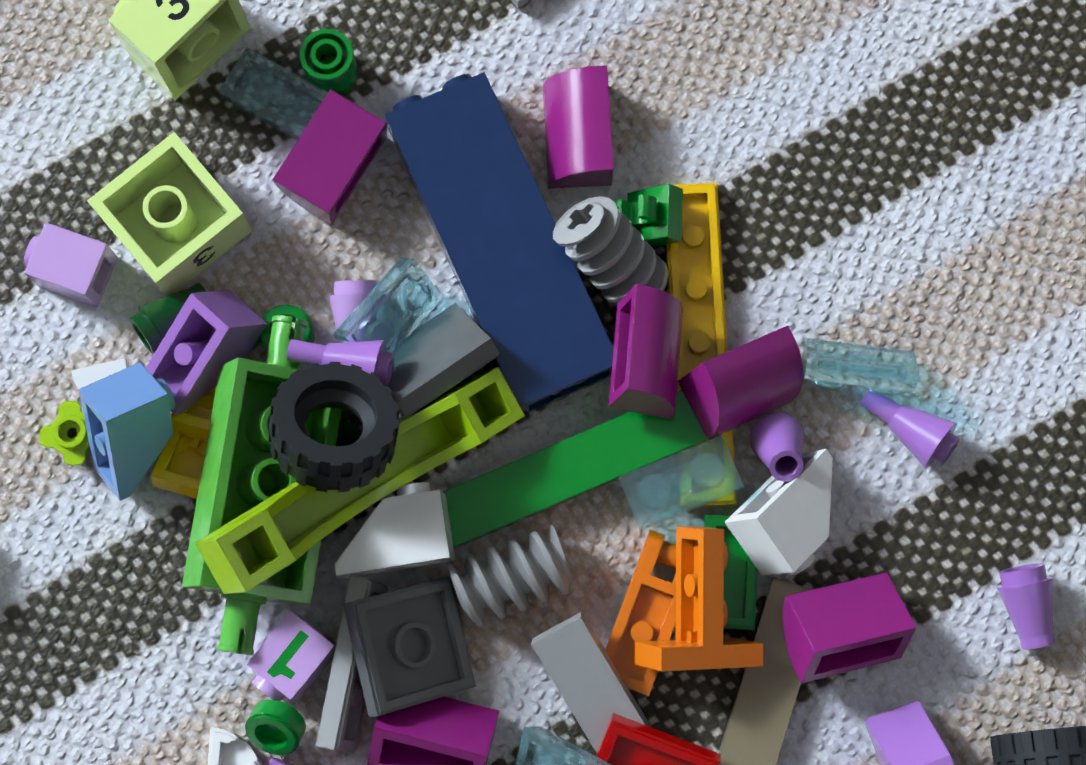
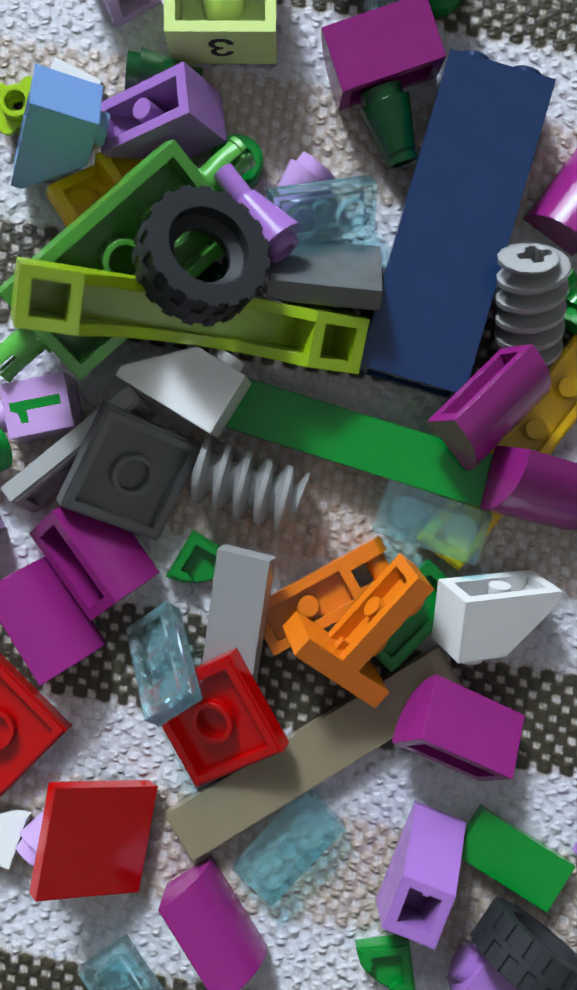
camera: 40 degrees right, 10 degrees up
(383, 204) = (390, 122): none -> dark green cone
(521, 675) = (195, 560): none -> green tile
(779, 444) = (528, 557): medium lavender cone -> none
(982, 696) = (515, 858): none -> green tile

